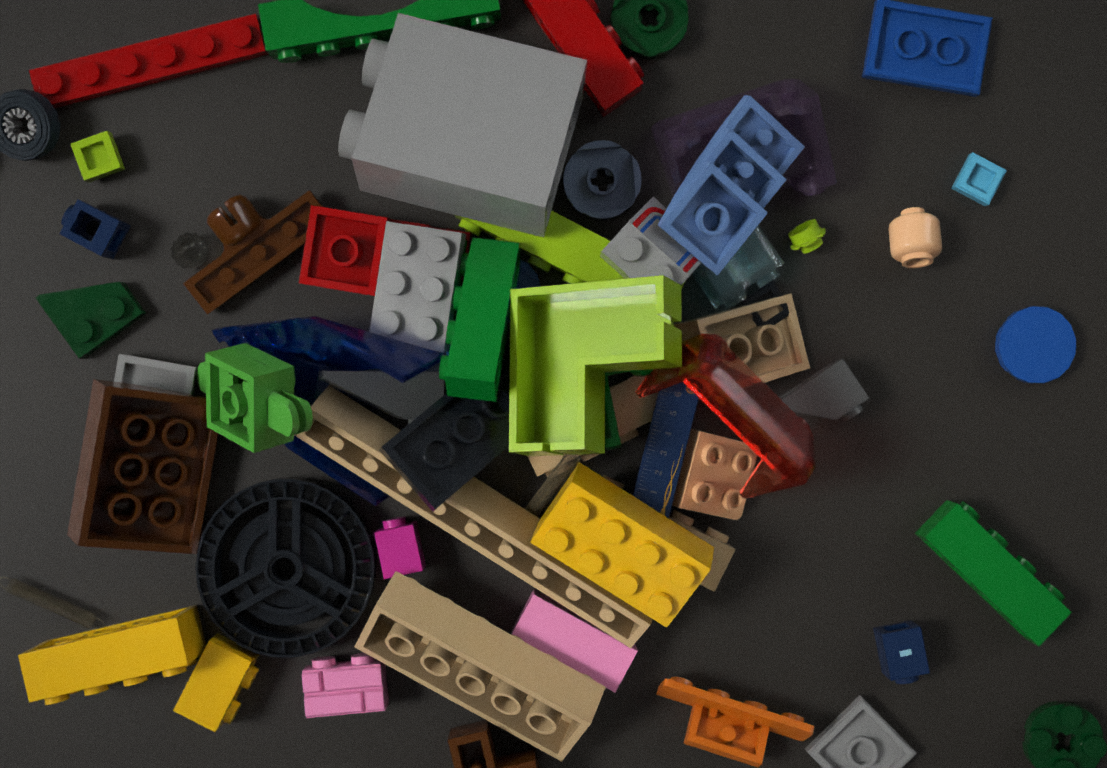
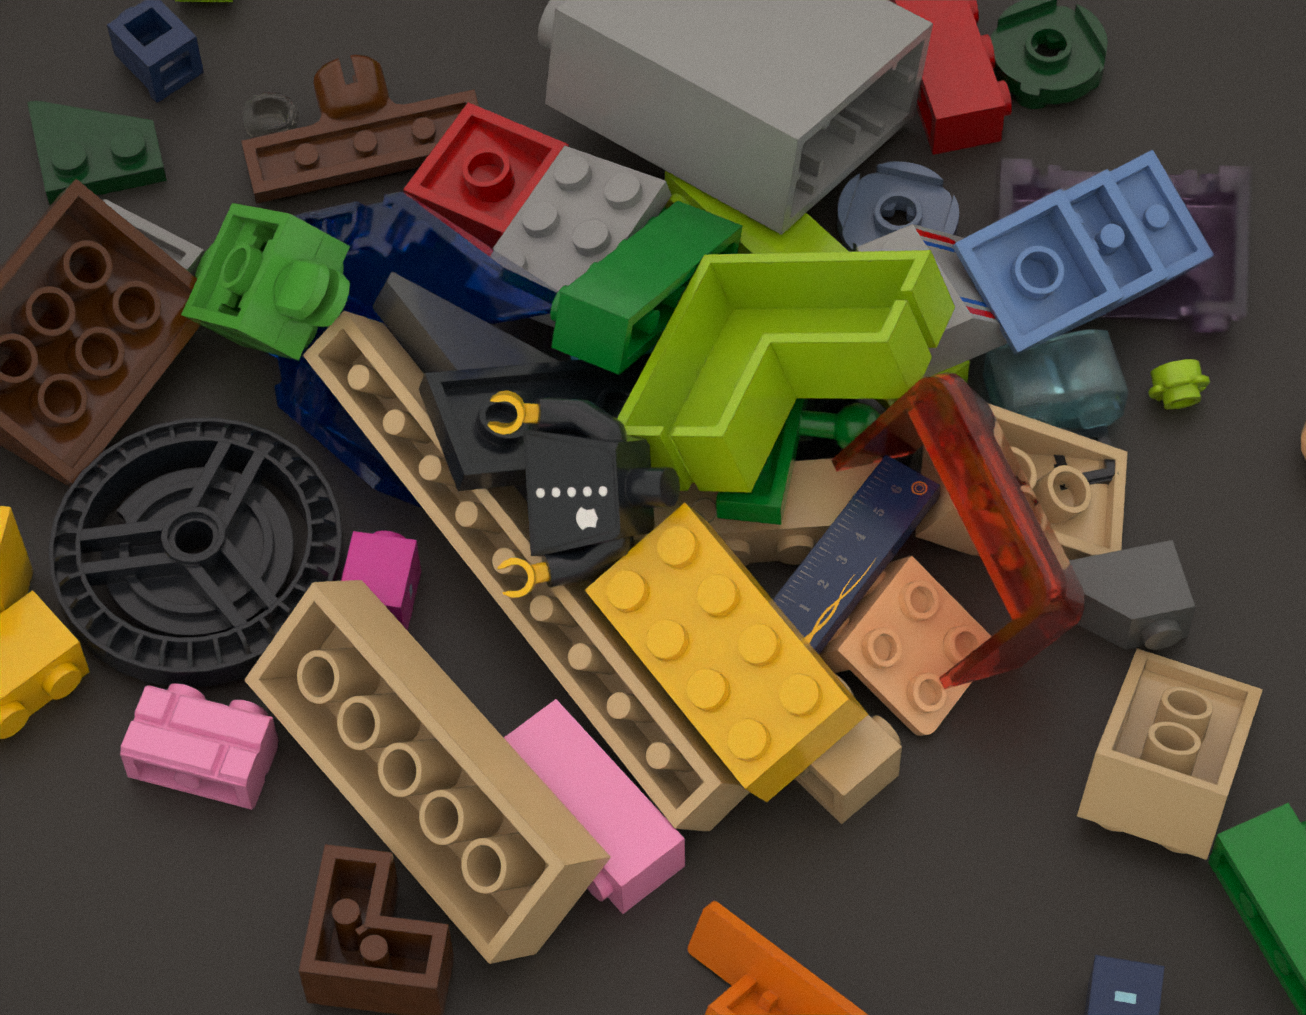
camera: 20 degrees right, 30 degrees down
(508, 492) = (584, 488): none -> torso
(879, 483) = (1169, 754): none -> tan slope

